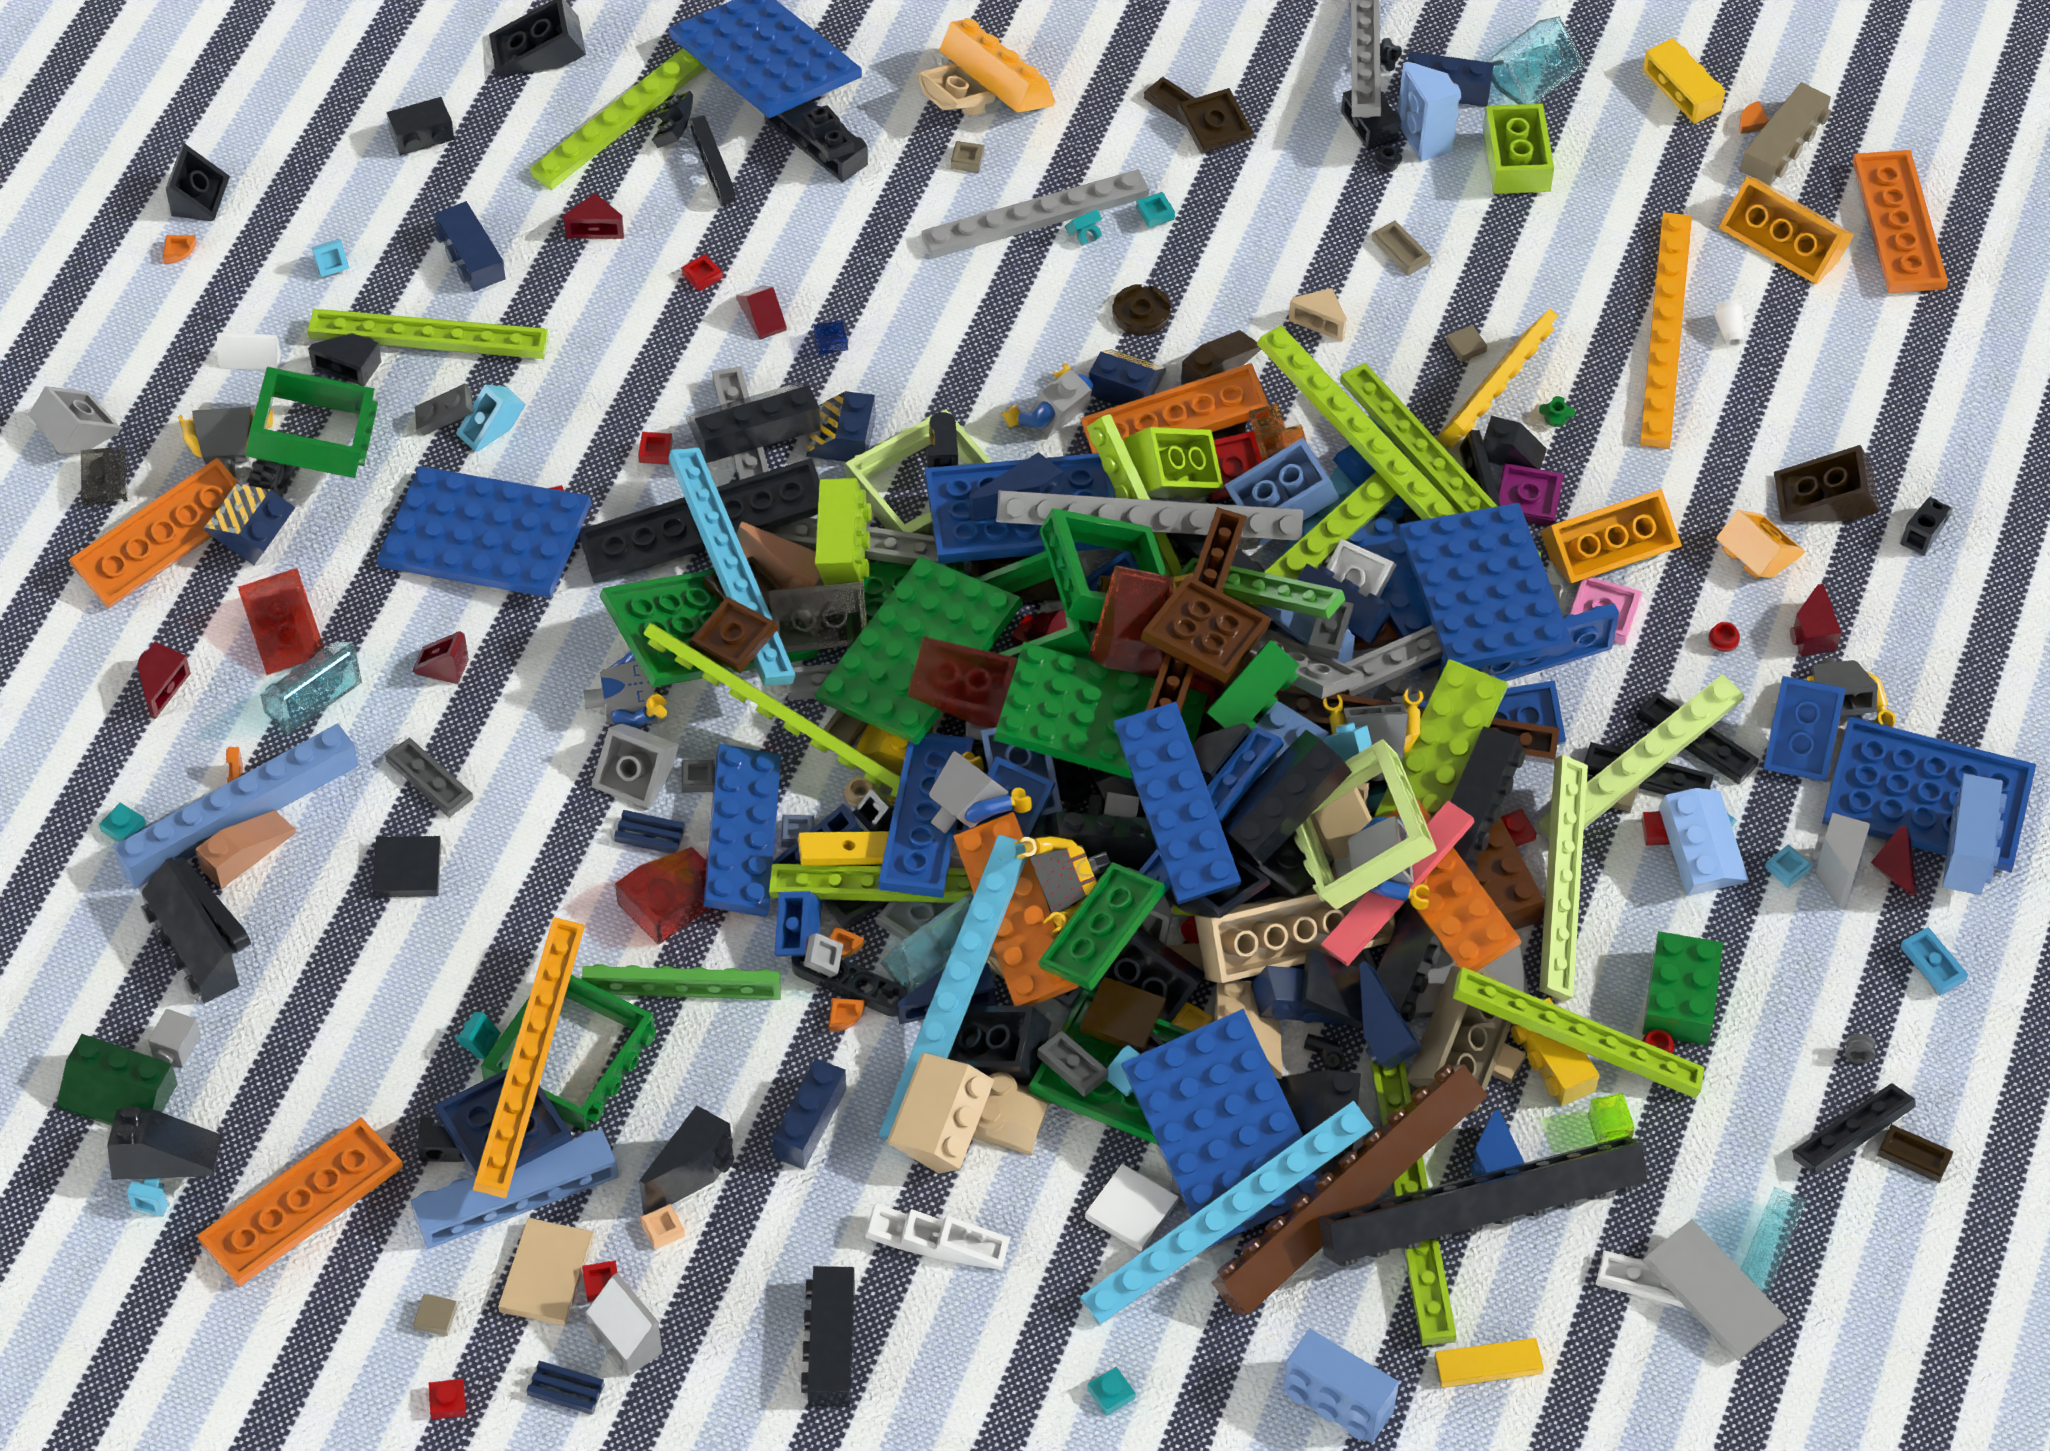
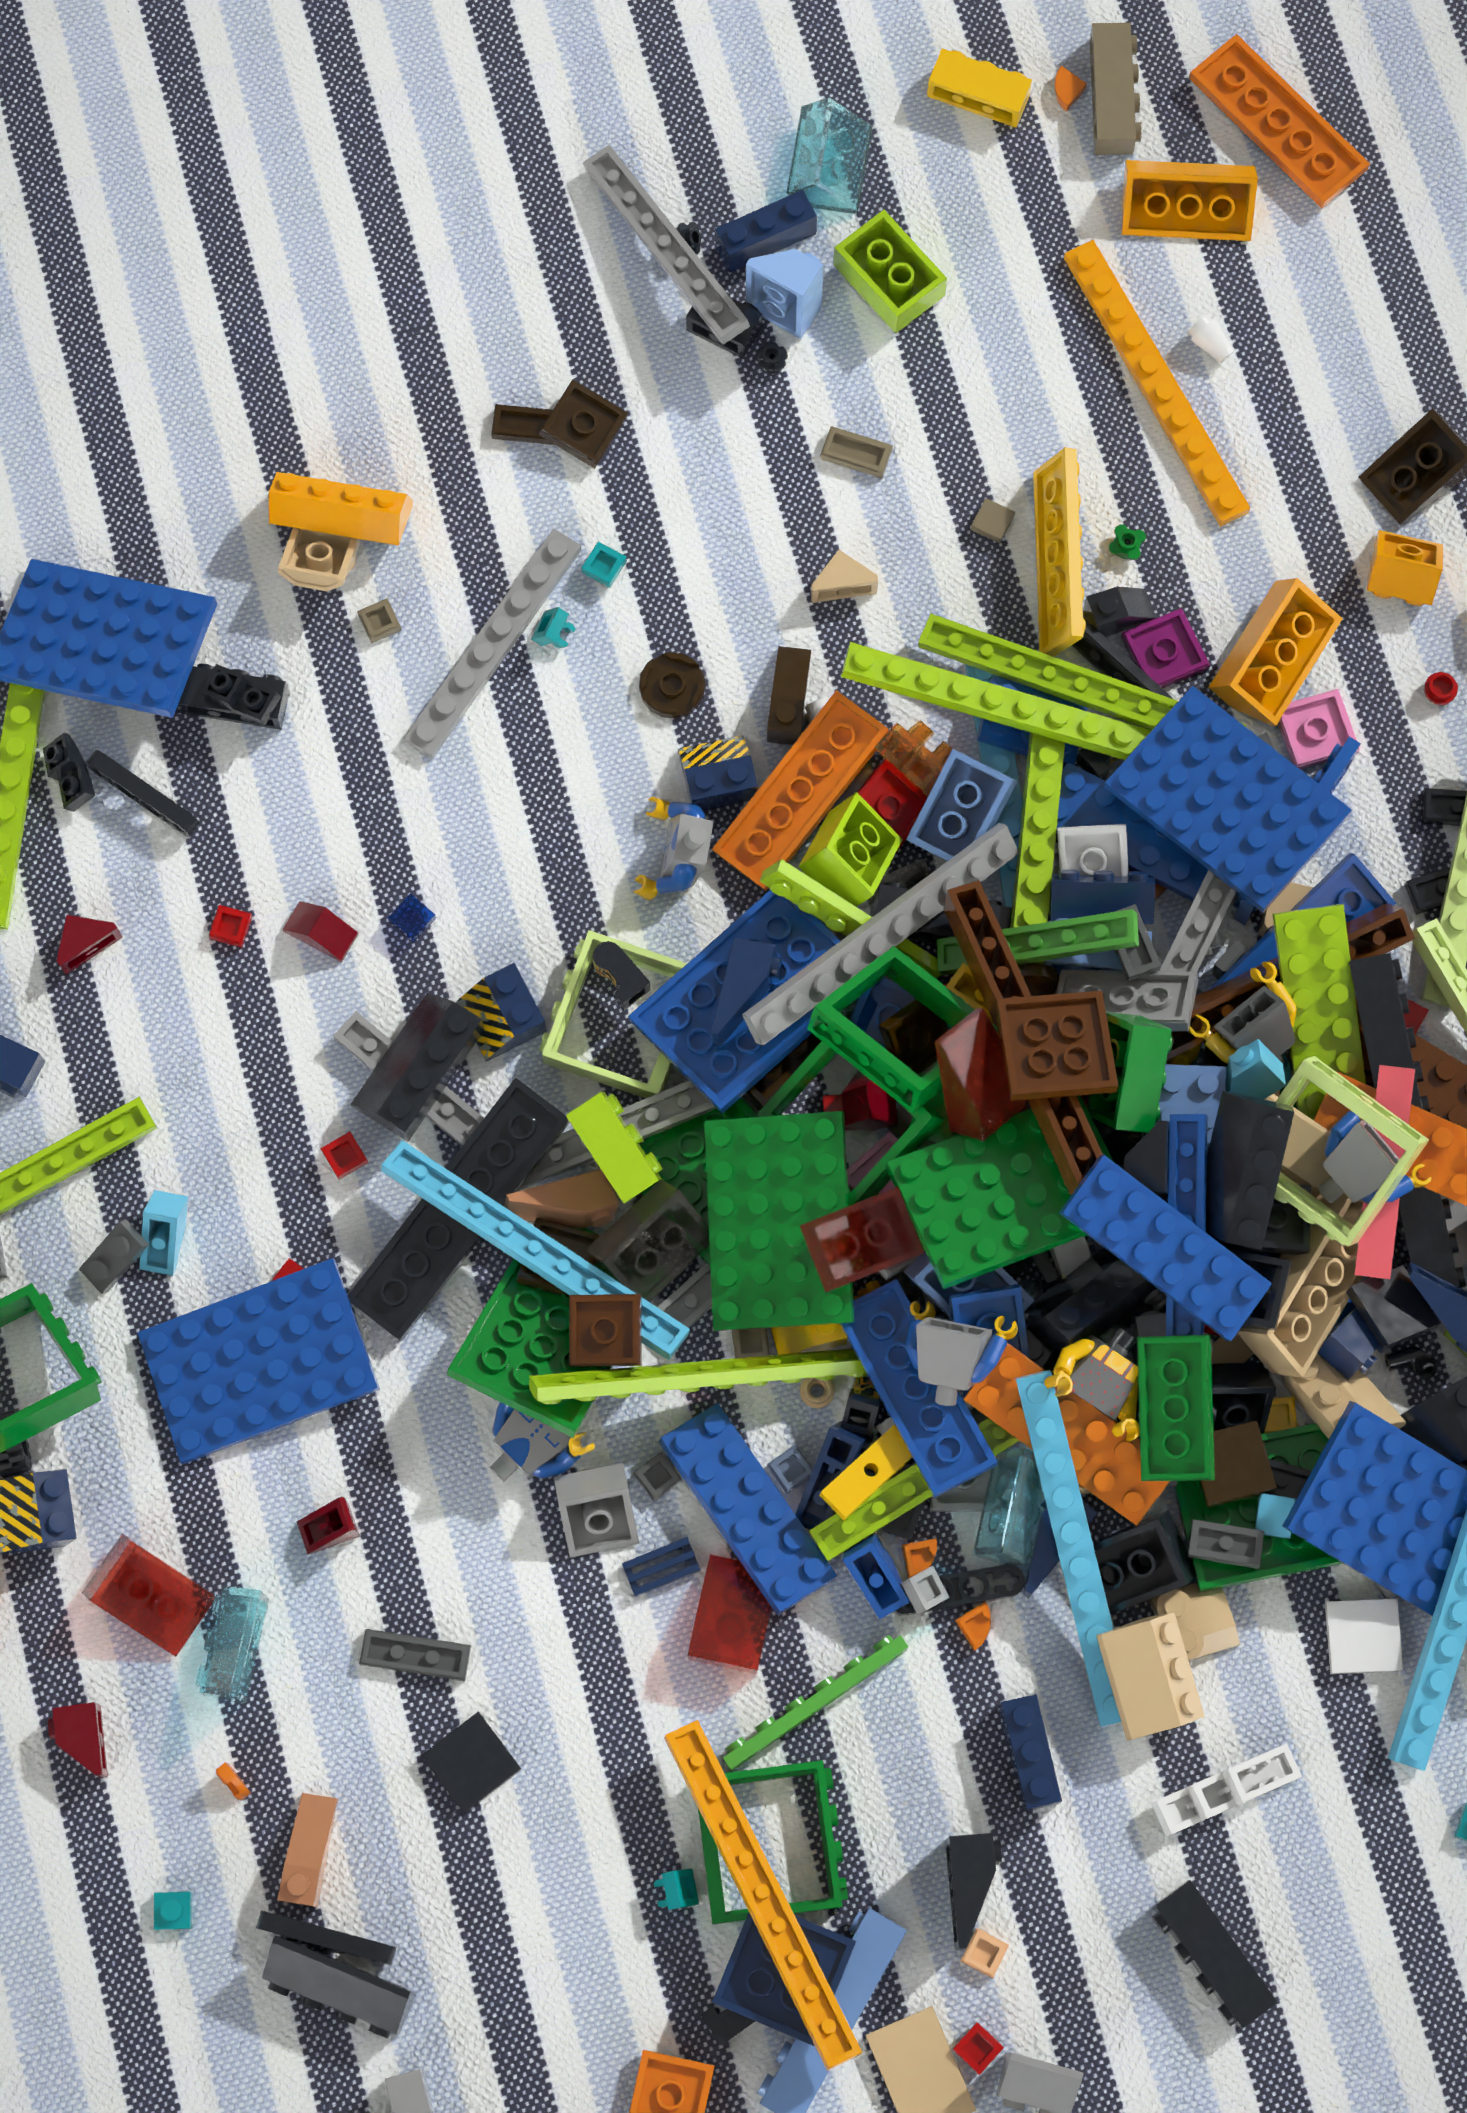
camera: 35 degrees left, 20 degrees up
(248, 796) = (268, 1820): medium blue brick -> none

